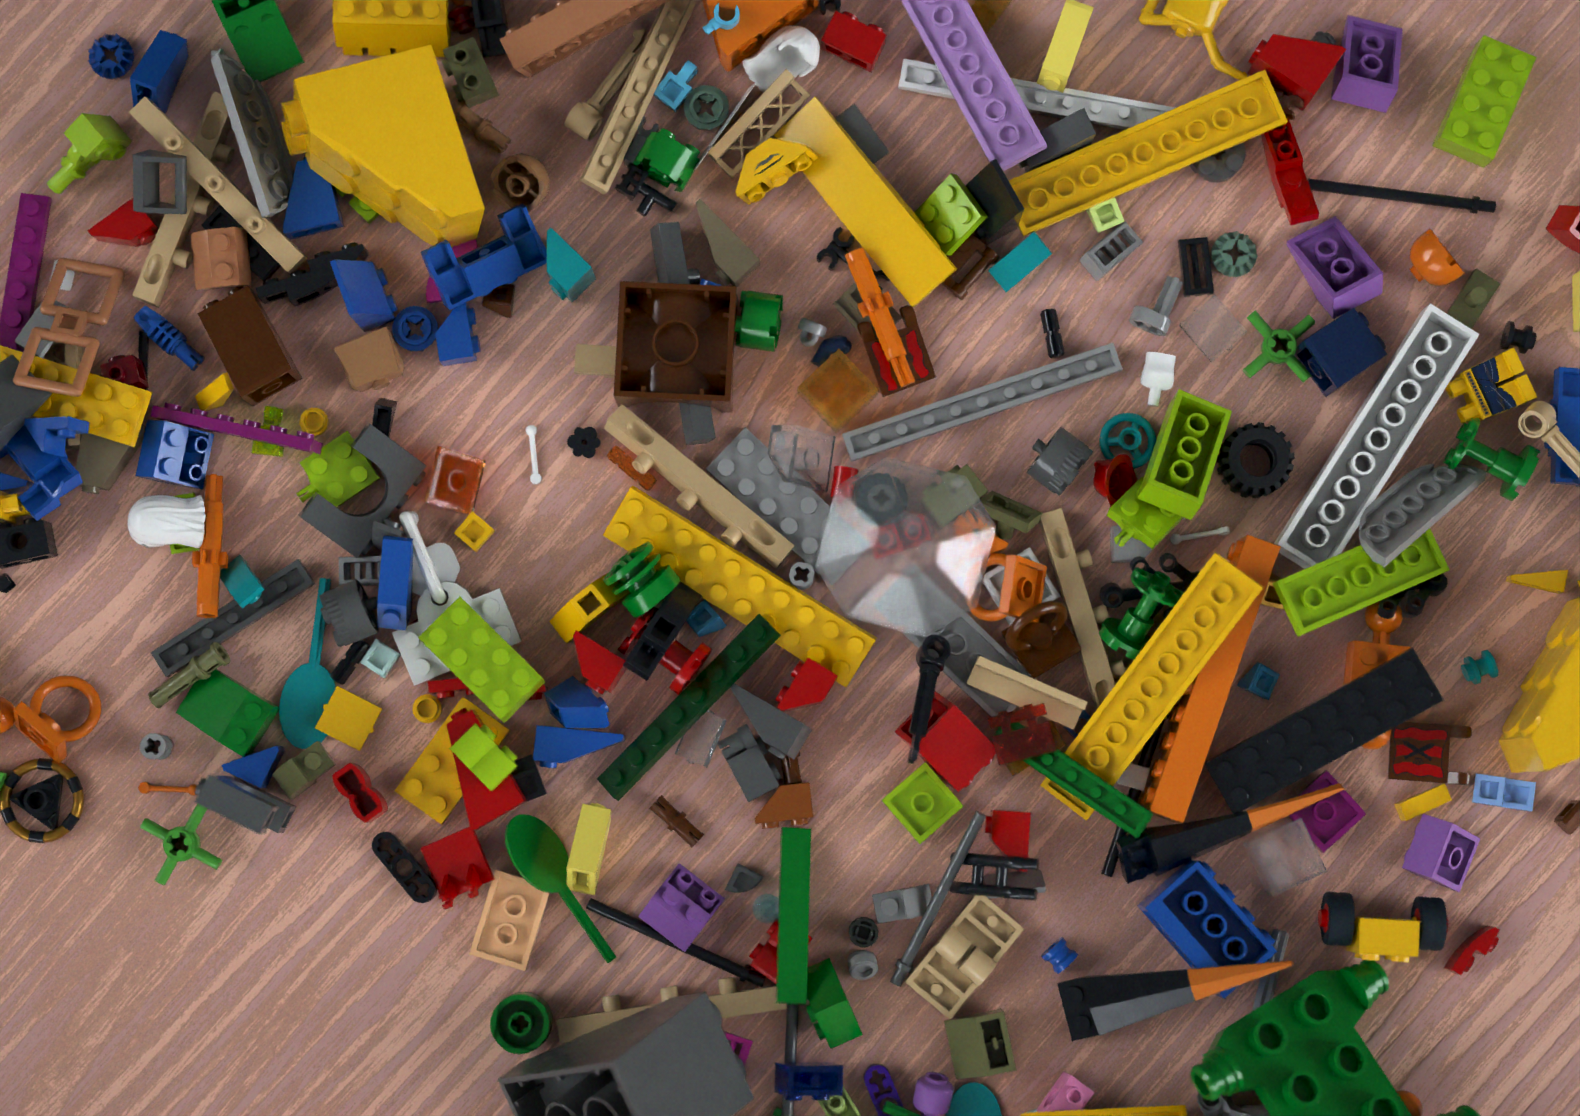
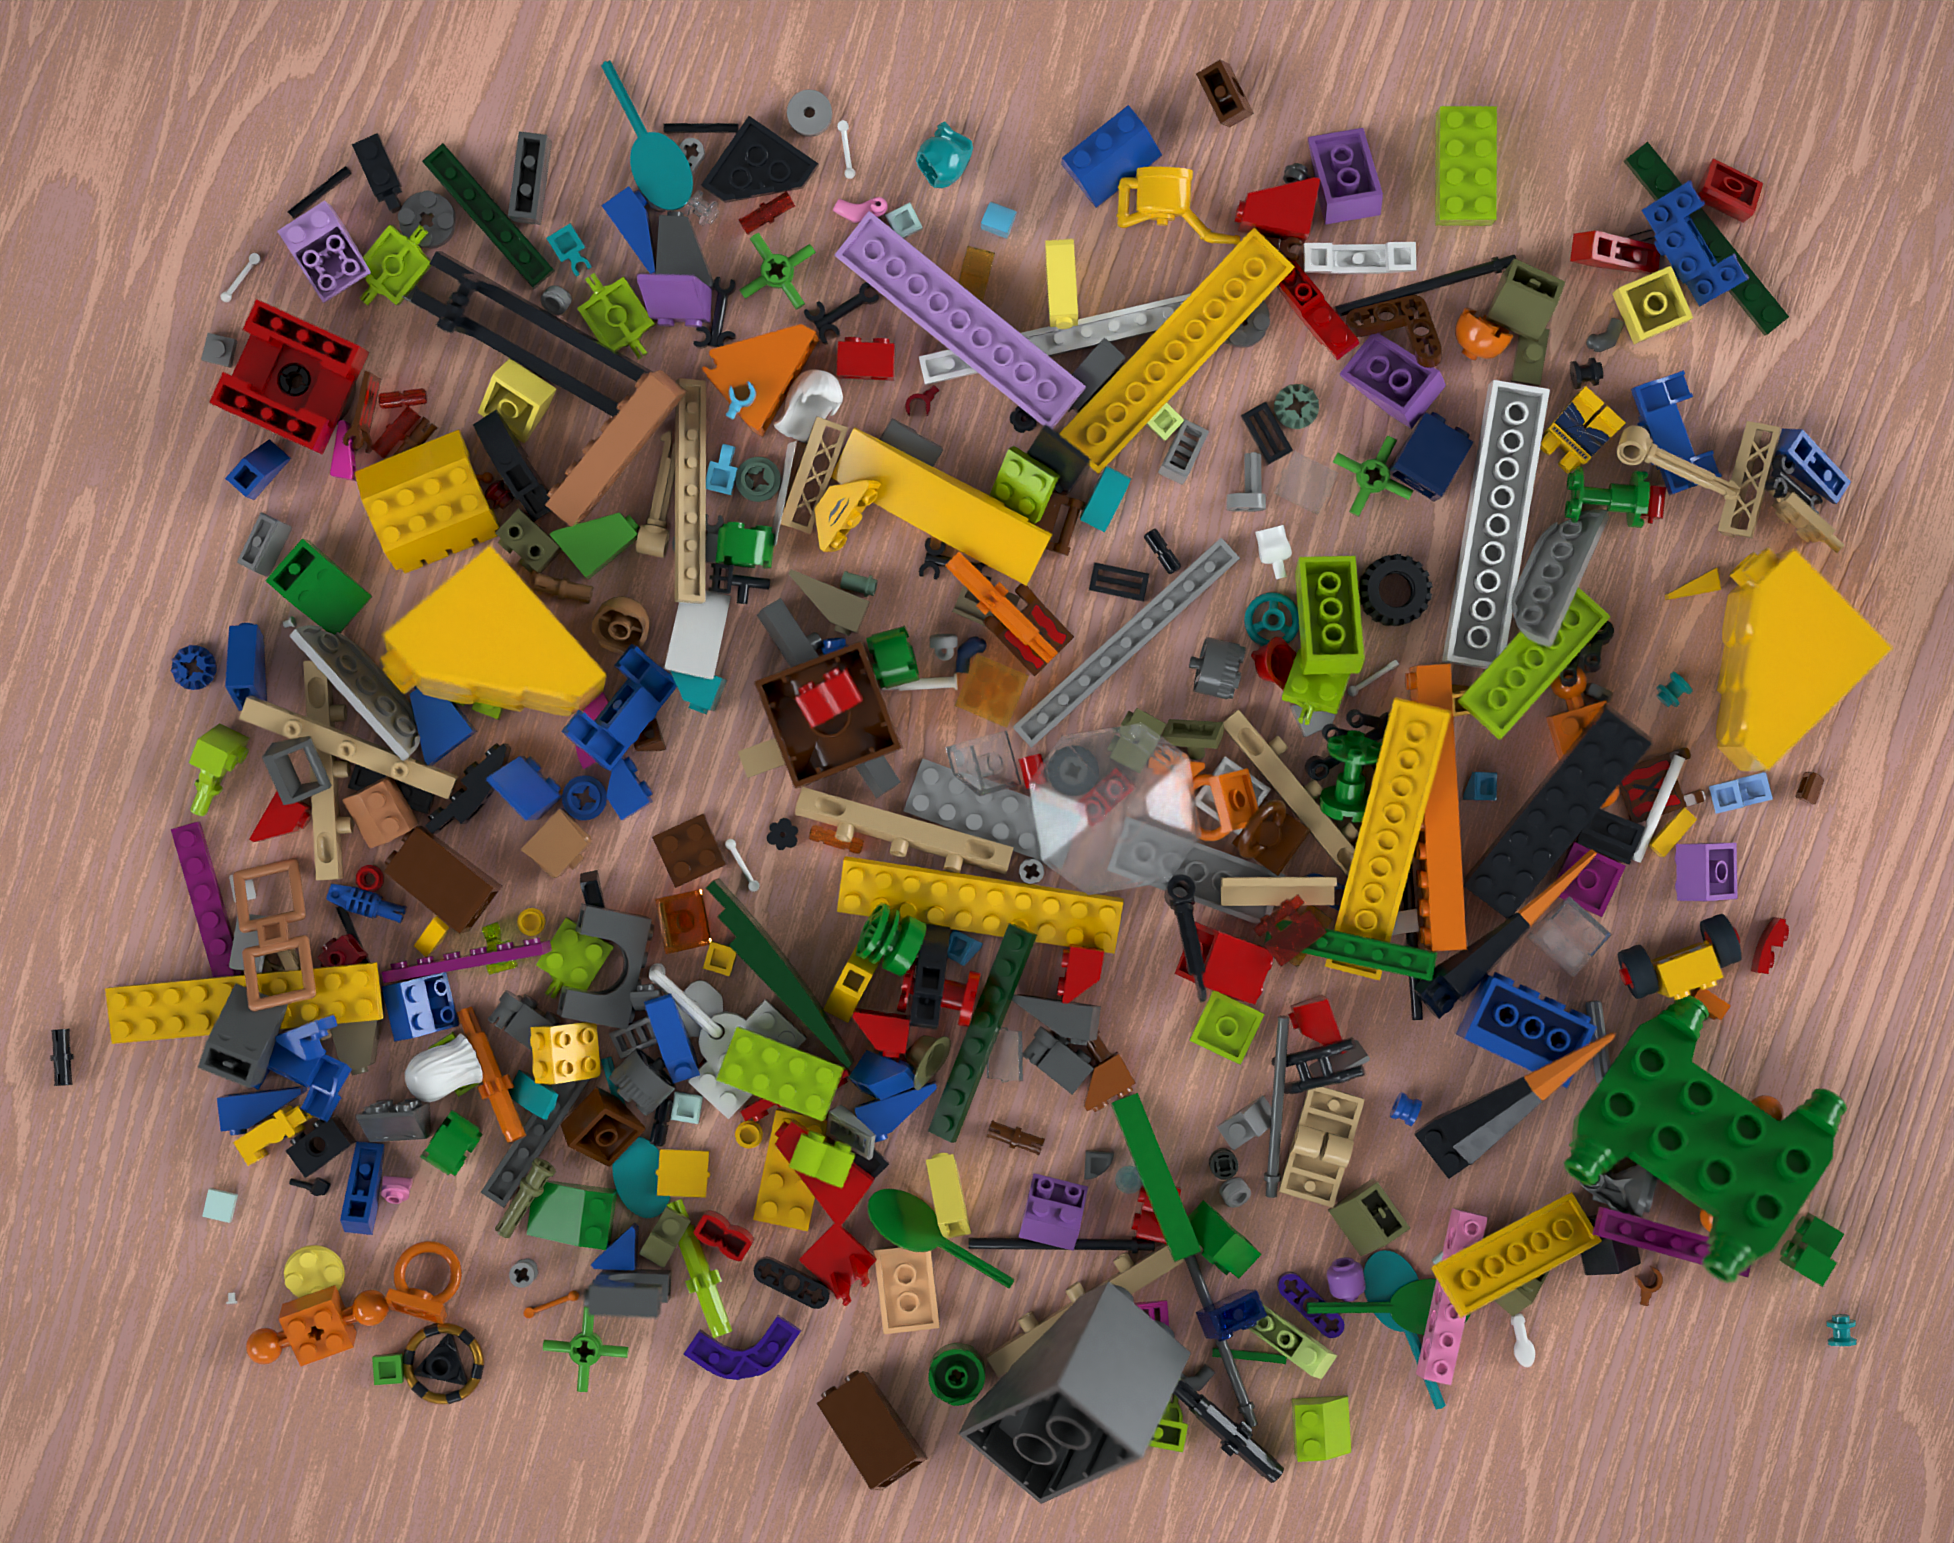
camera: 20 degrees left, 5 degrees up
(42, 602) = (363, 1189): none -> blue slope
(73, 616) = (396, 1189): none -> bright pink plate
(101, 549) = (396, 1122): none -> dark grey slope
(143, 593) = (451, 1142): none -> green brick
(179, 309) = (361, 878): none -> red plate
(266, 512) = (519, 1015): none -> dark grey hinge
(289, 553) = (565, 1053): none -> yellow bracket
(291, 640) = (601, 1127): none -> reddish brown slope
(321, 826) = (702, 1280): none -> lime piece
(325, 924) = (747, 1362): none -> dark purple plate
(415, 1042) = (870, 1430): none -> reddish brown slope
(490, 419) = (689, 850): none -> reddish brown plate
(515, 736) = (839, 1128): none -> light grey slope
(520, 561) = (775, 969): none -> dark green slope
(532, 99) = (597, 541): none -> bright green slope
(587, 221) = (698, 636): none -> white sticker
(627, 708) = (927, 1057): none -> olive piece
(682, 323) = (828, 697): none -> red brick
(759, 243) = (859, 583): none -> sand green pin
(779, 360) = (929, 683): none -> white piece
(894, 100) = (927, 397): none -> dark red piece
(969, 162) = (1019, 425): none -> black plate
(993, 353) = (1095, 577): none -> black tile
(1348, 144) = (1359, 258): none -> white slope
(1363, 778) = (1611, 836): none -> black plate
(1367, 213) = (1402, 318): none -> reddish brown beam
(1397, 984) = (1716, 1007): none -> orange piece
(1406, 638) = (1598, 692): none -> dark grey tile
(1419, 772) = (1658, 807): none -> white bar
(1489, 244) = (1525, 300): none -> olive slope
(1534, 486) = (1656, 504): none -> red piece
(1550, 316) = (1607, 339): none -> dark grey arm

